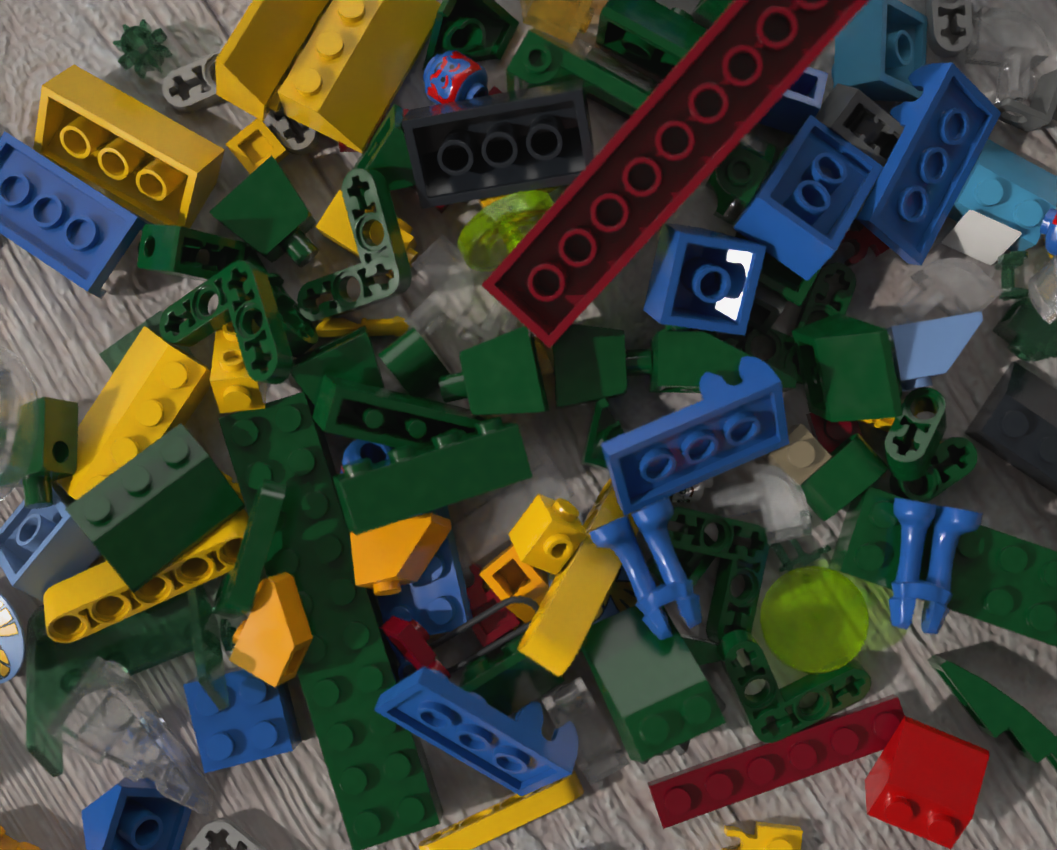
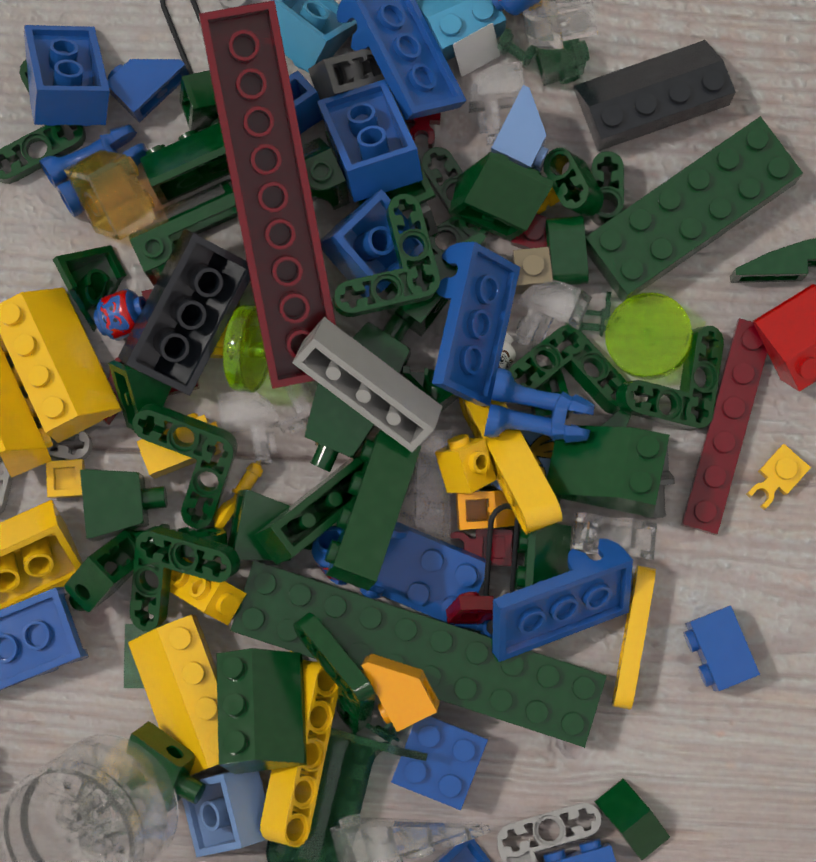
camera: 45 degrees left, 5 degrees down
(397, 552) = (405, 573): light orange slope -> none
(414, 364) = (289, 474): dark green beam -> none
(552, 379) = (368, 384): none -> light grey brick
(688, 334) = (401, 278): none -> dark green beam
(935, 591) = (646, 203): blue piece -> none

